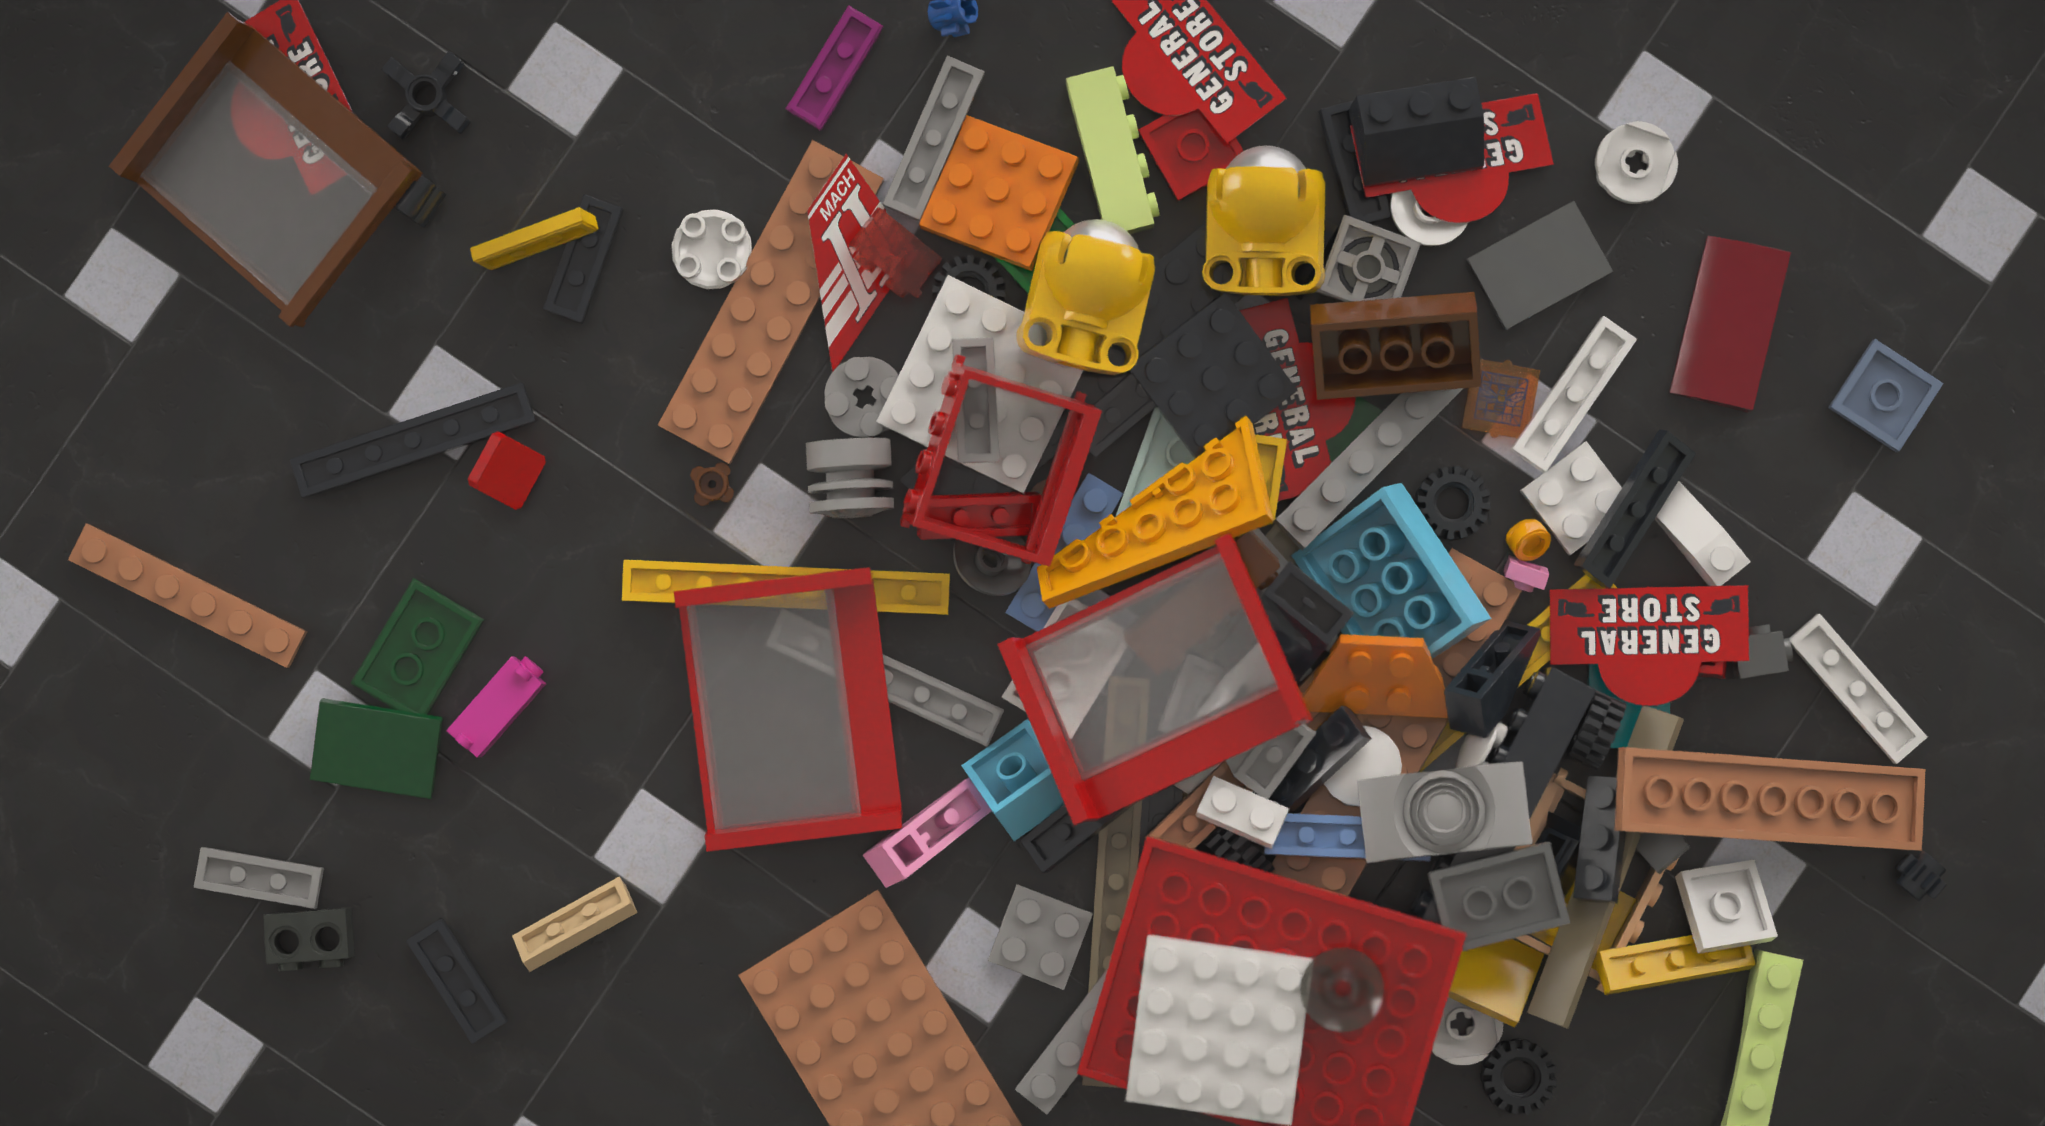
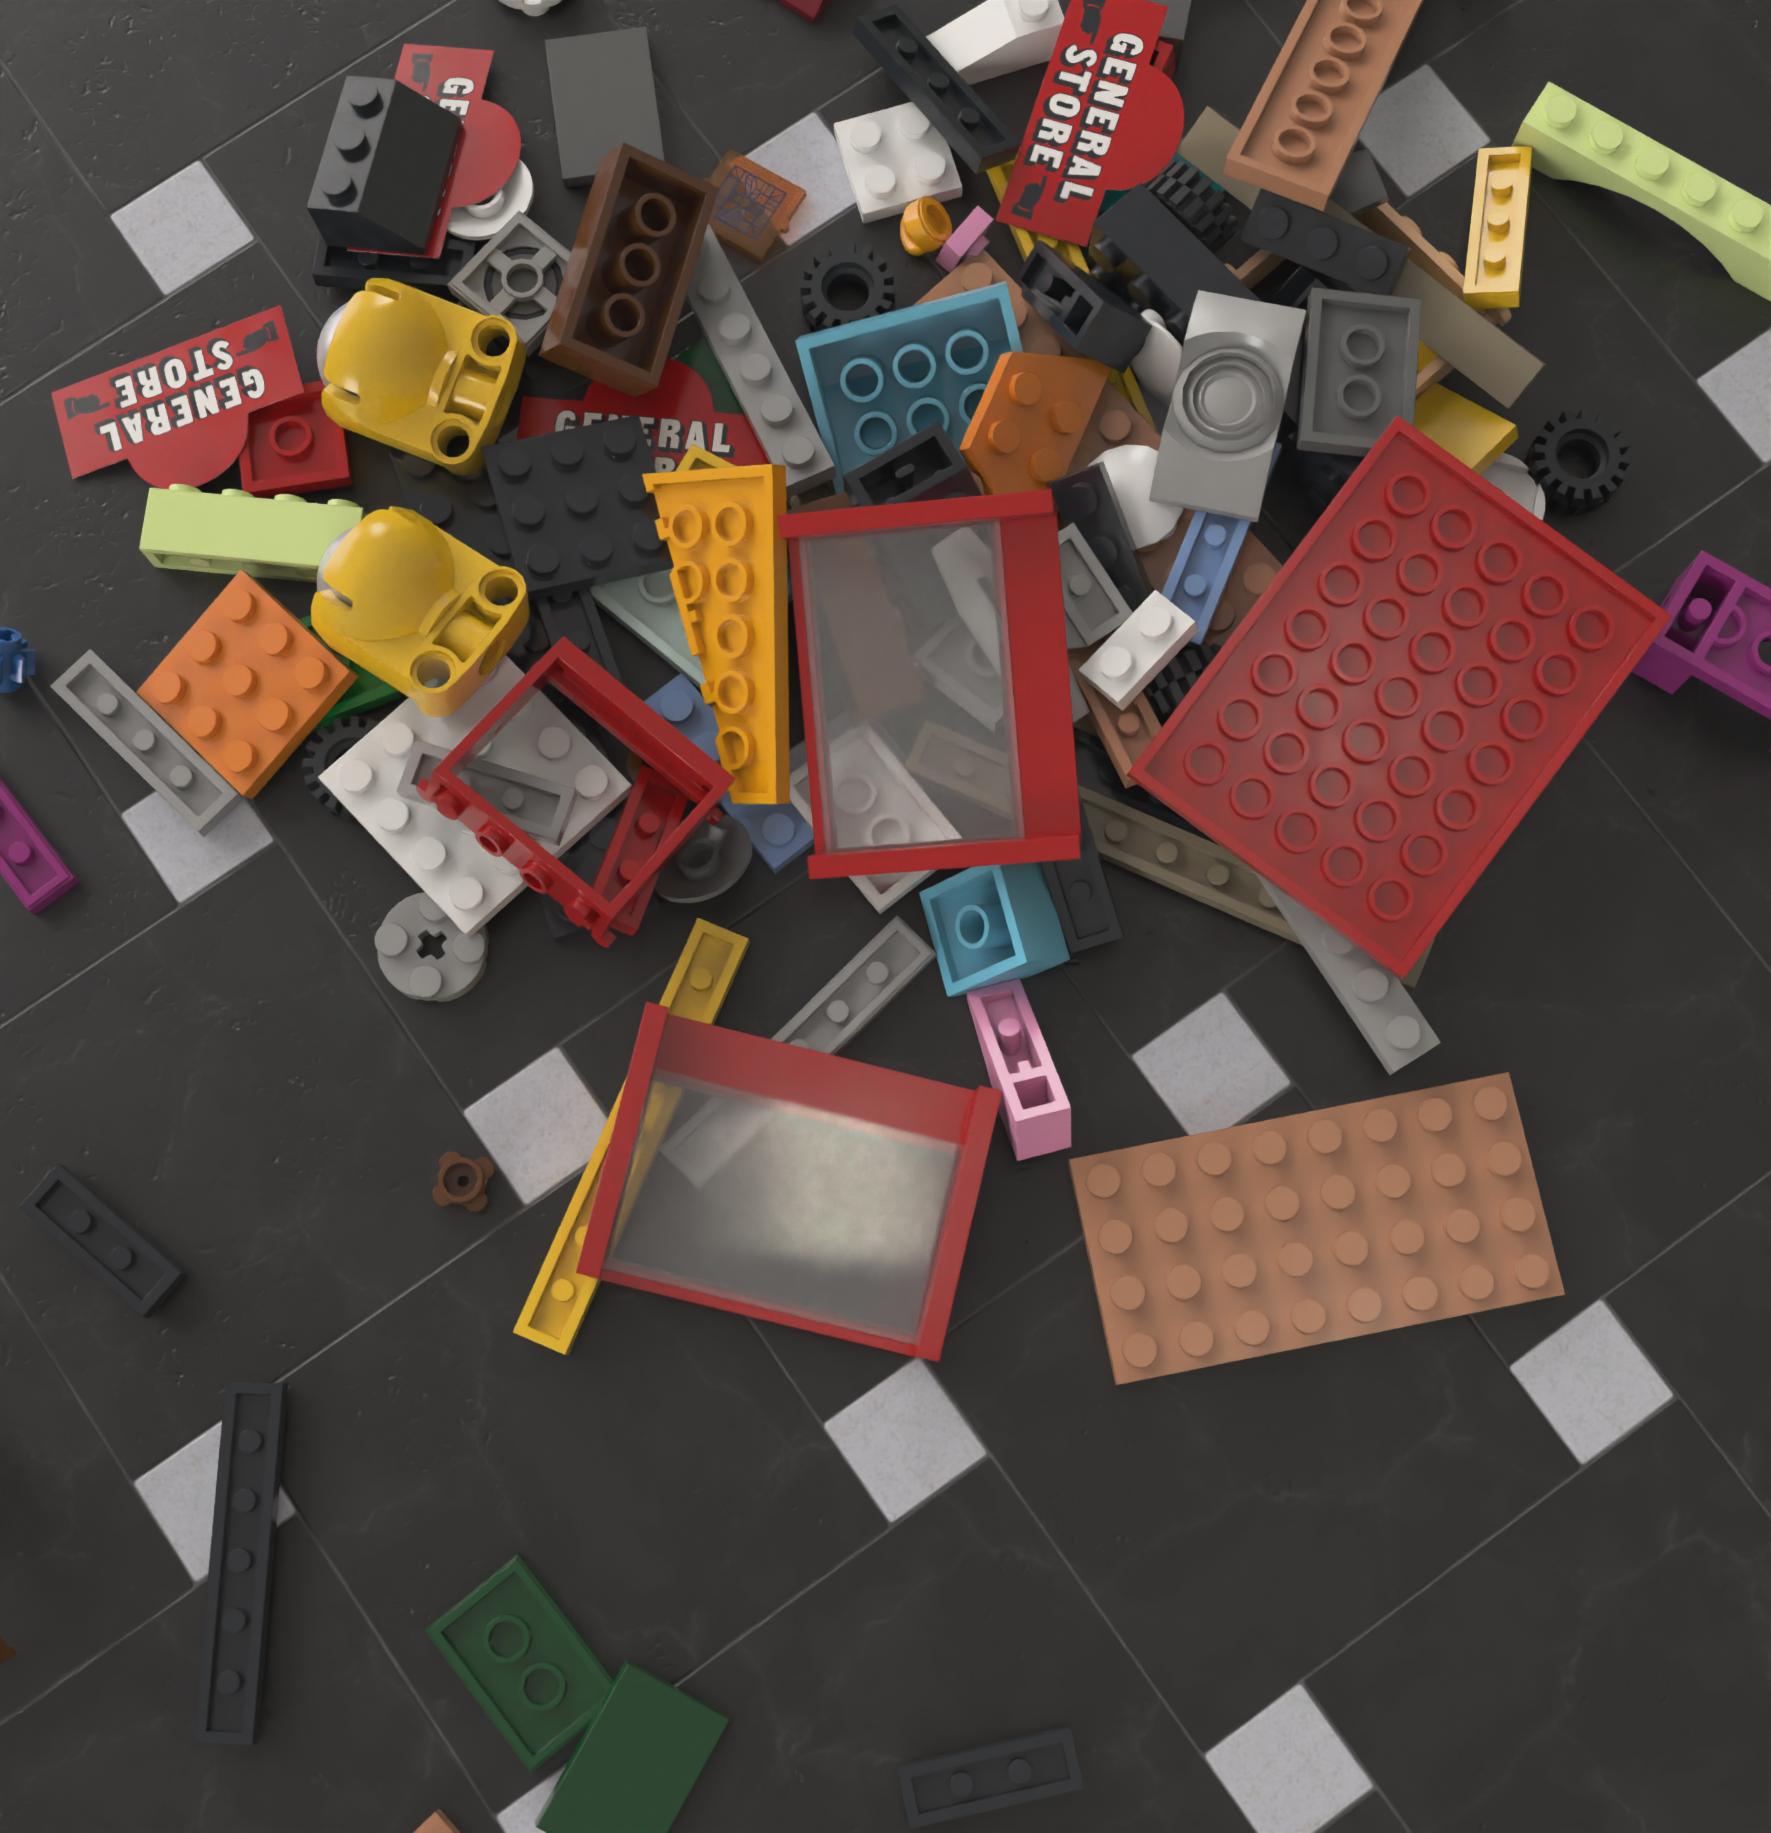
camera: 65 degrees left, 10 degrees down
(497, 705) = (638, 1577): dark pink brick -> none
(506, 470) = (331, 1445): red piece -> none
(534, 238) = (43, 1292): yellow tile -> none
(574, 924) = (971, 1582): tan plate -> none
(711, 249) = (163, 1069): white dish -> none
(757, 320) = (265, 1023): nougat plate -> none
(846, 289) = (246, 889): sticker -> none
(849, 476) = (509, 989): light grey wheel -> none
(895, 253) = (267, 839): clear red bracket -> none
(1040, 936) = (1202, 976): light grey plate -> none
(1218, 1030) = (1412, 768): white plate -> none
(1338, 1011) = (1431, 564): clear smoke dish -> none
(1573, 394) = (773, 117): white plate -> none
(1726, 906) = (1451, 152): white plate -> none

